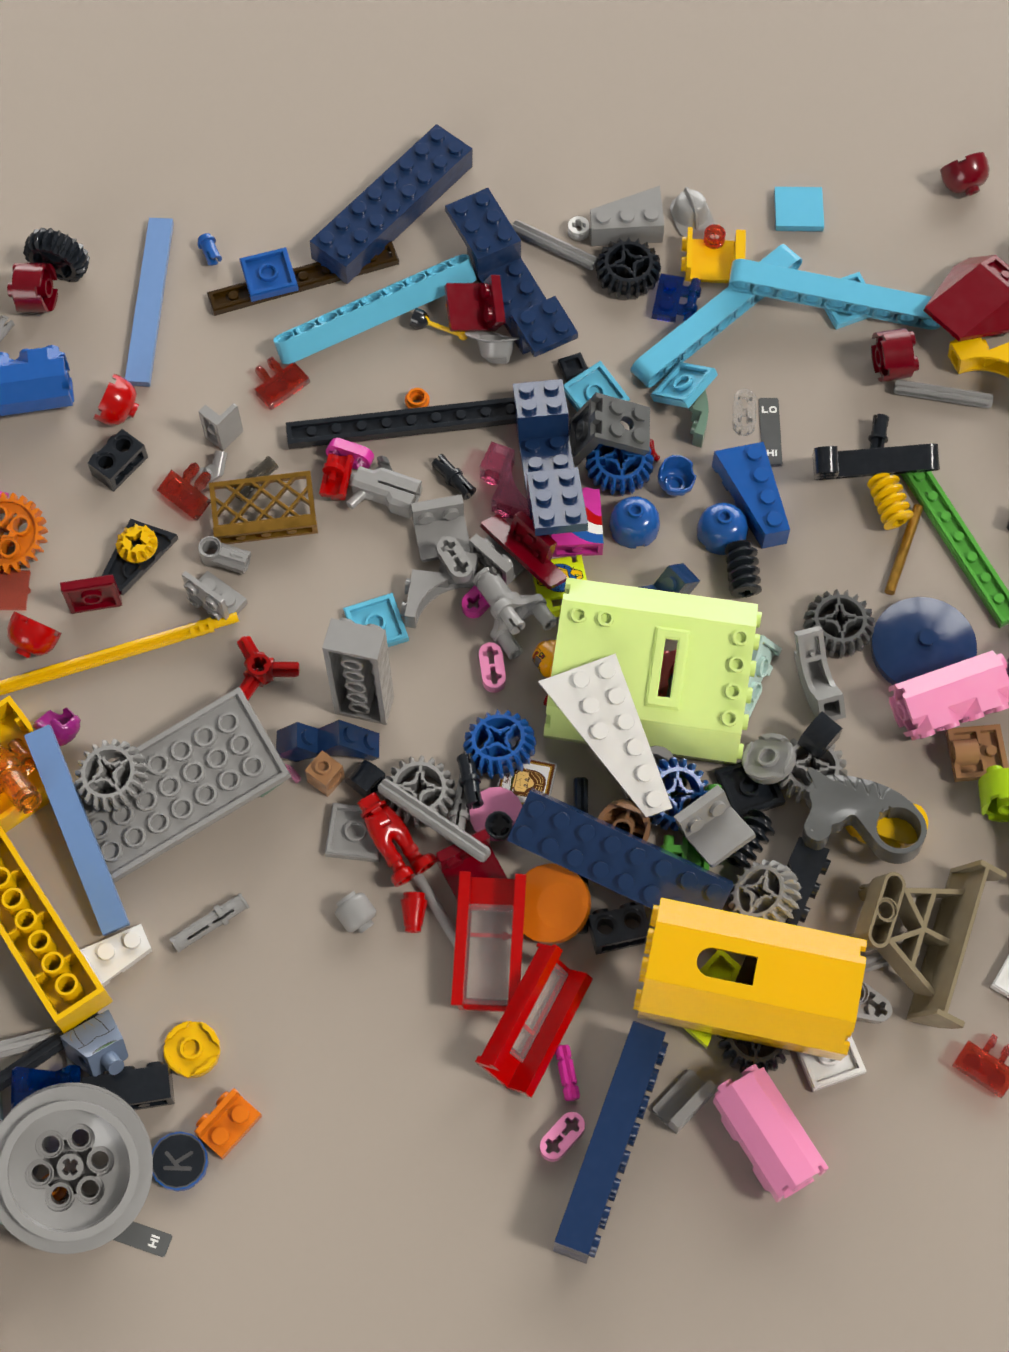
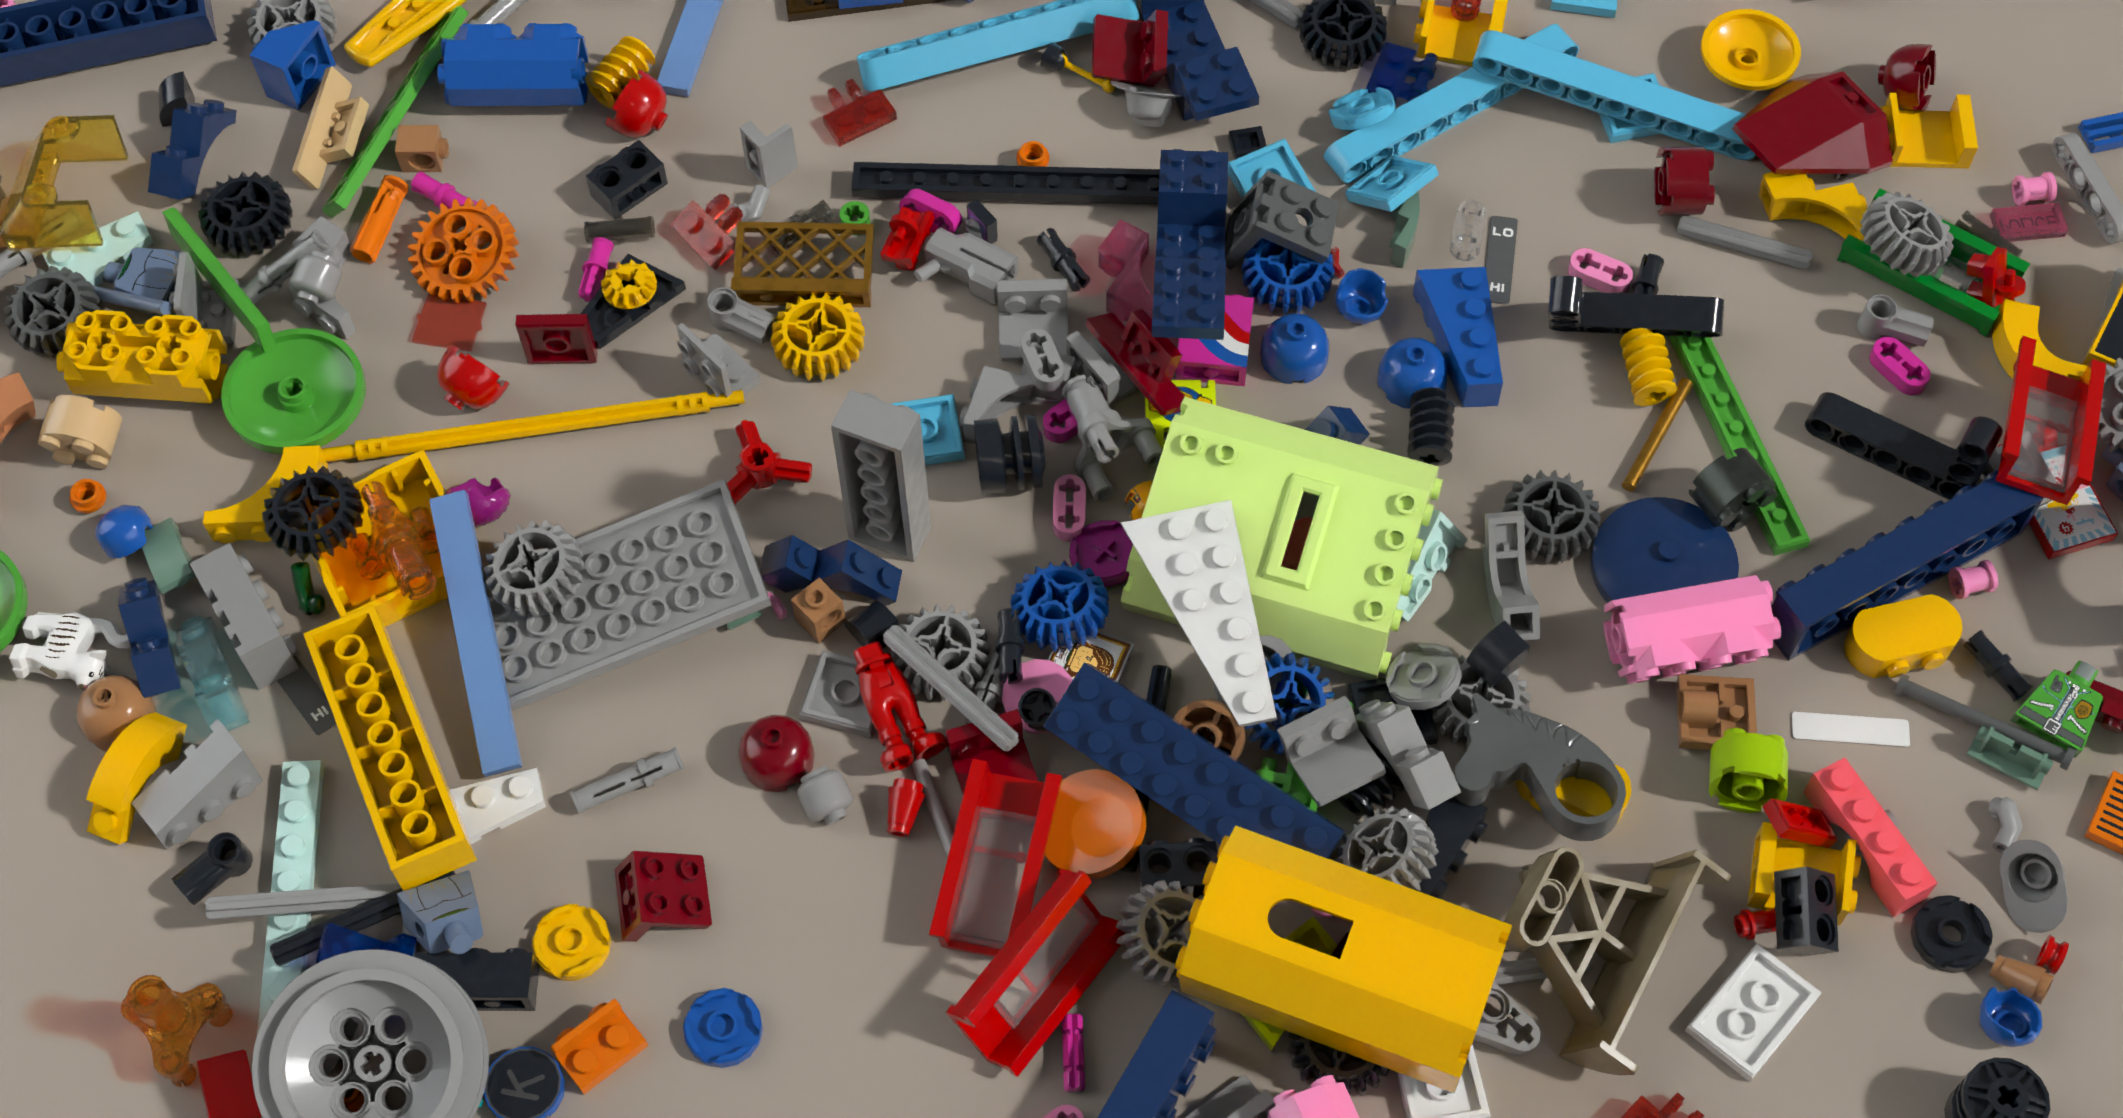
camera: 10 degrees right, 5 degrees down
(94, 374) = (618, 68): none -> yellow piece
(107, 533) = (595, 268): none -> dark pink axle
(119, 499) = (620, 229): none -> clear smoke pin
(250, 1003) = (661, 892): none -> dark red bracket
(272, 554) = (811, 321): none -> yellow gear
(291, 458) = (854, 208): none -> bright green bush
(313, 885) = (776, 753): none -> dark red cylinder
(313, 1095) = (723, 1028): none -> blue tile
(393, 456) = (986, 220): none -> black tile
(442, 635) = (1008, 454): none -> black wheel
(523, 696) = (1103, 549): none -> magenta tile
(606, 975) = (1144, 915): none -> light grey gear
(652, 329) = (1362, 109): none -> medium azure tile
(761, 810) = (1399, 739): none -> light grey arch
(844, 431) = (1600, 271): none -> bright pink beam
(927, 236) = (1750, 49): none -> yellow dish
(965, 585) = (1733, 489): none -> pearl dark grey brick

